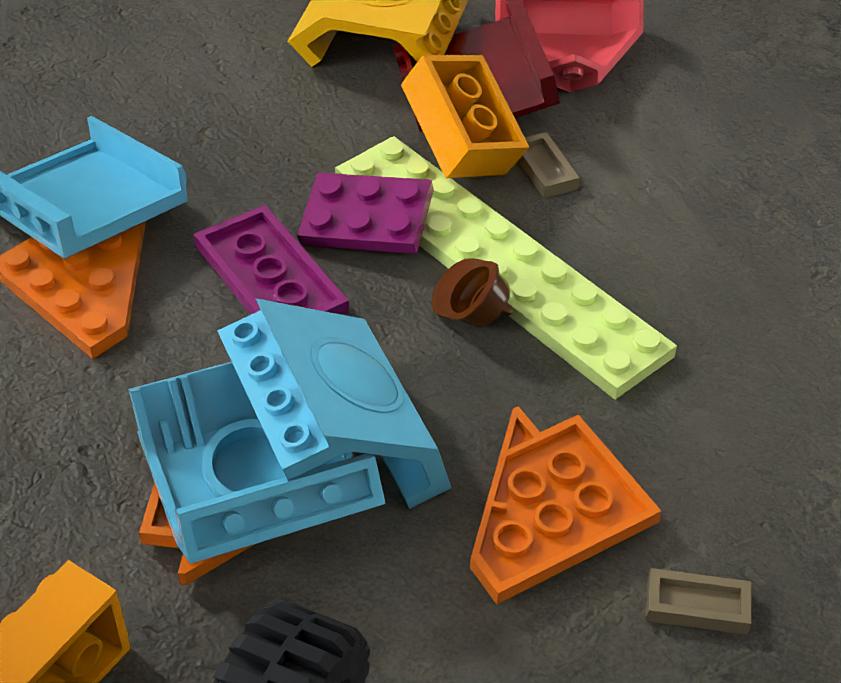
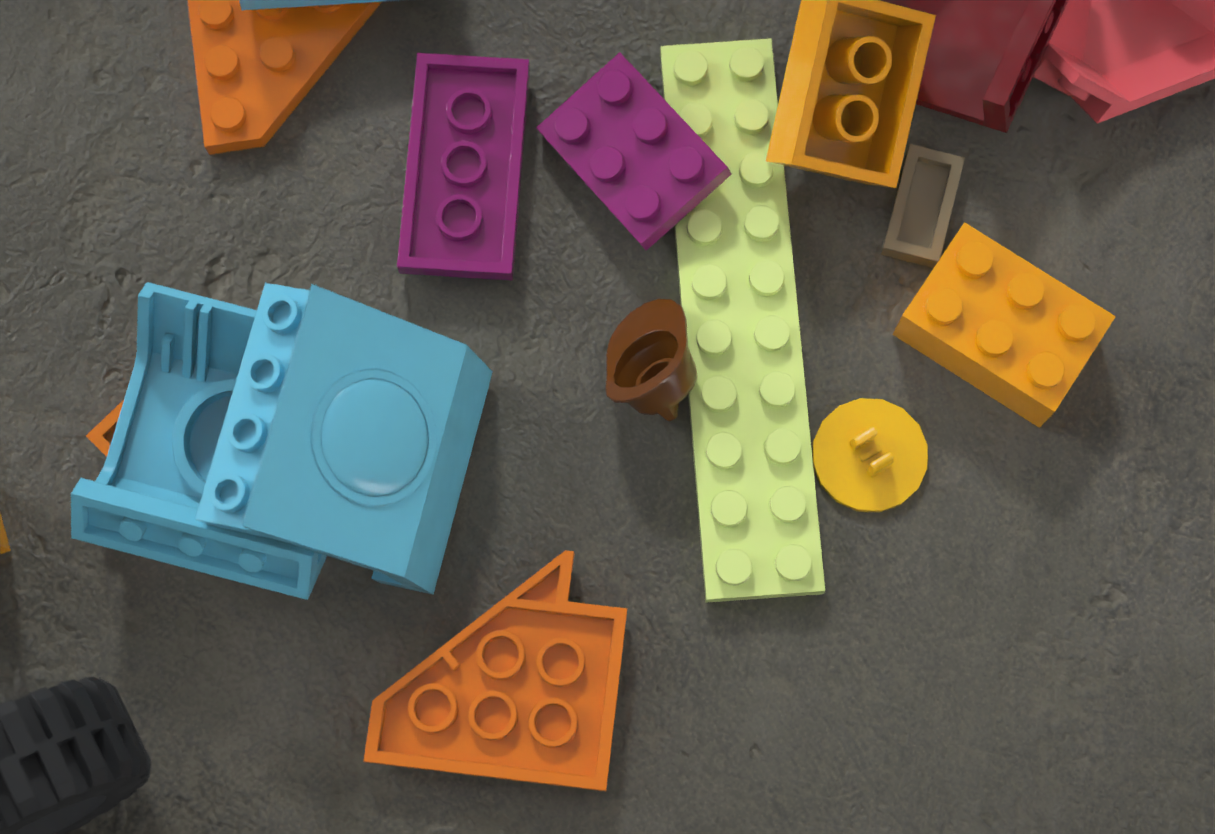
camera: 40 degrees right, 30 degrees up
(633, 280) = (870, 455): none -> yellow piece
(642, 181) = (1003, 325): none -> light orange brick

